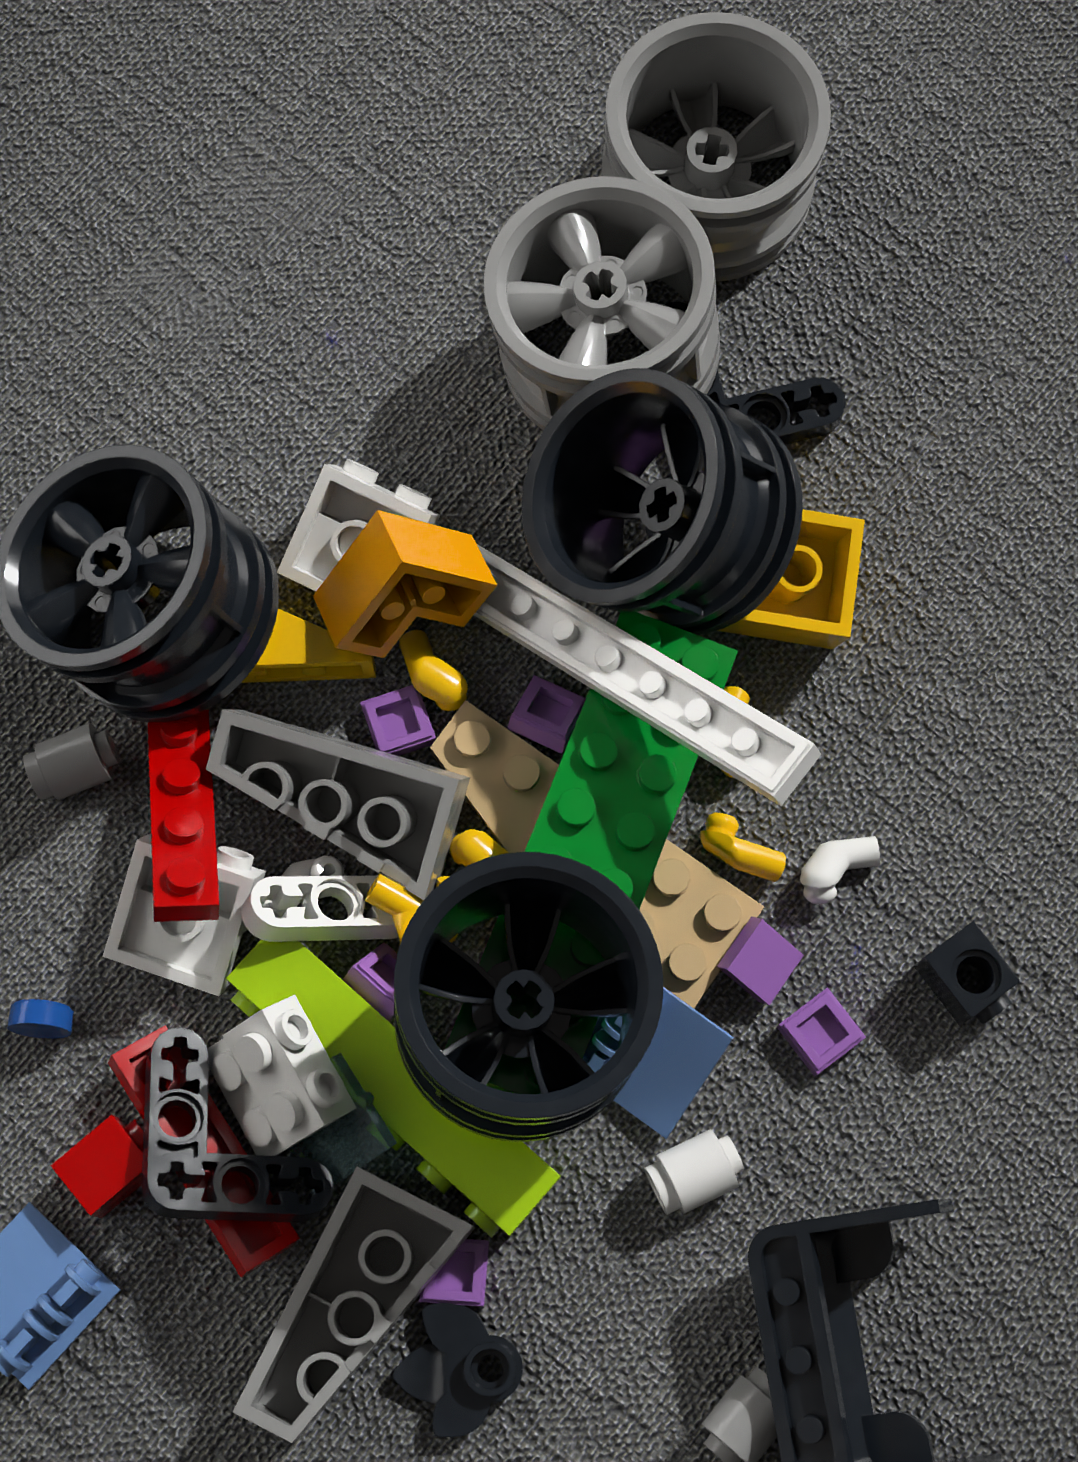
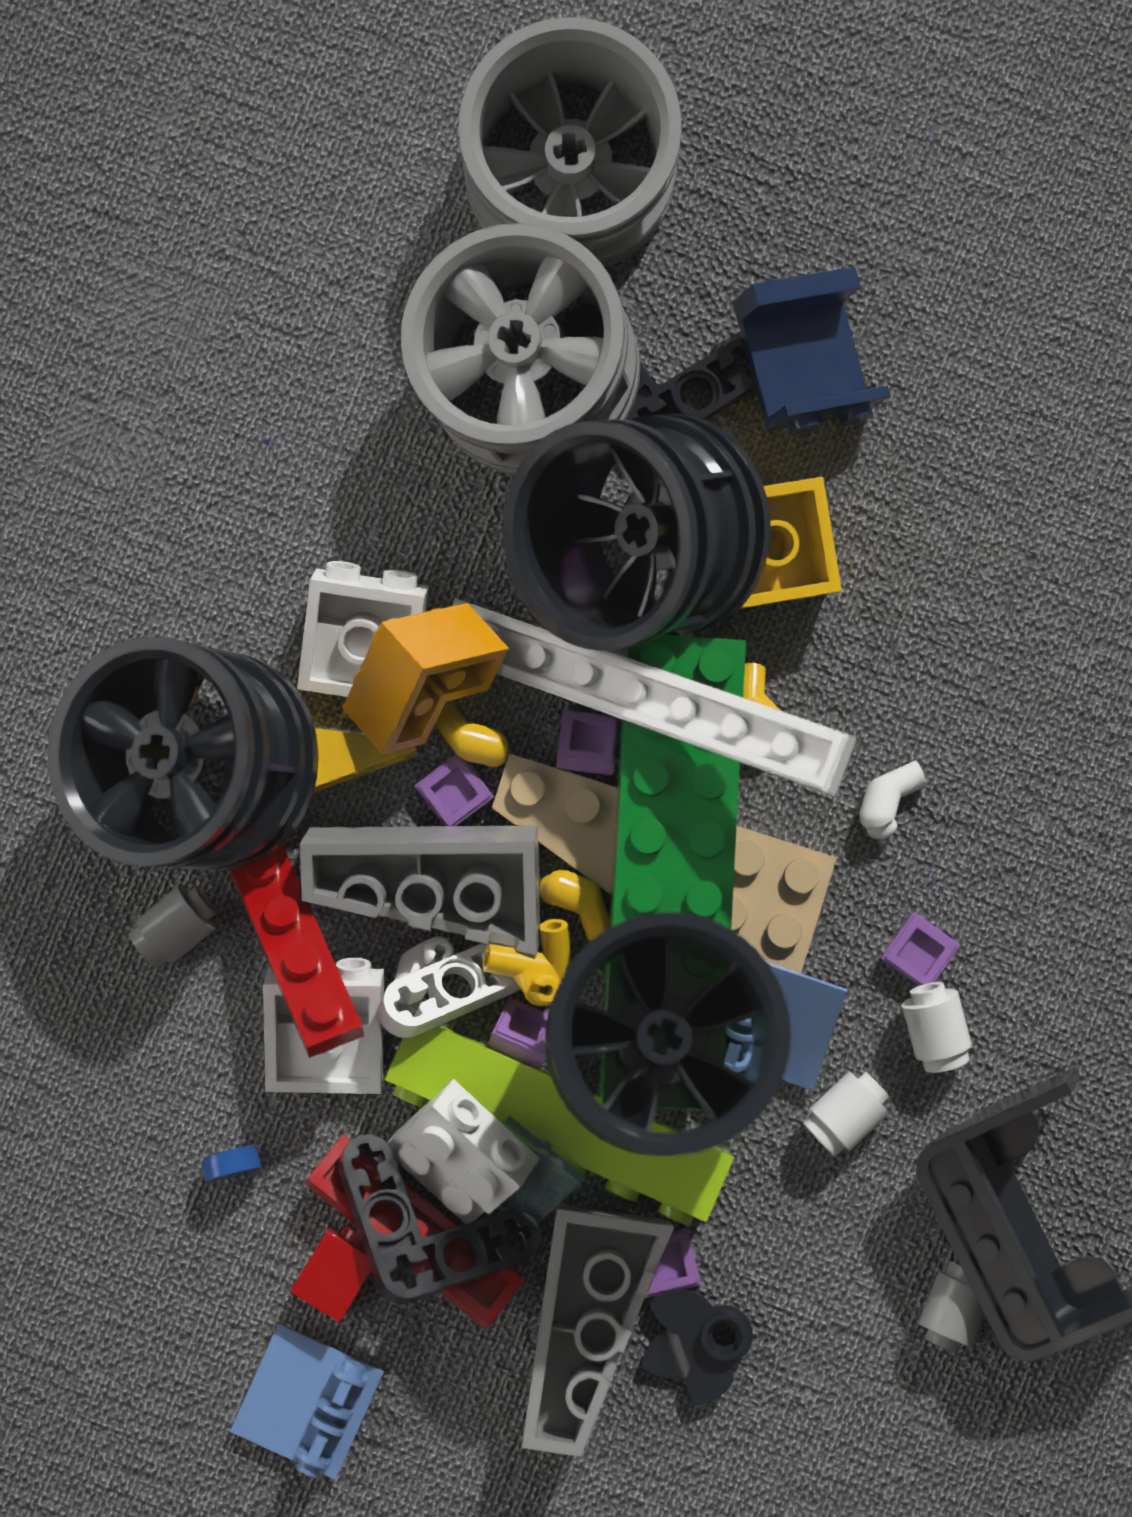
camera: 15 degrees left, 10 degrees up
(738, 853) = (799, 816): yellow arm -> none
(760, 960) = (847, 907): medium lavender tile -> none
(816, 1112) = (937, 1027): none -> white brick
(883, 405) = (805, 351): none -> dark blue panel
(971, 948) = (1009, 857): black brick -> none

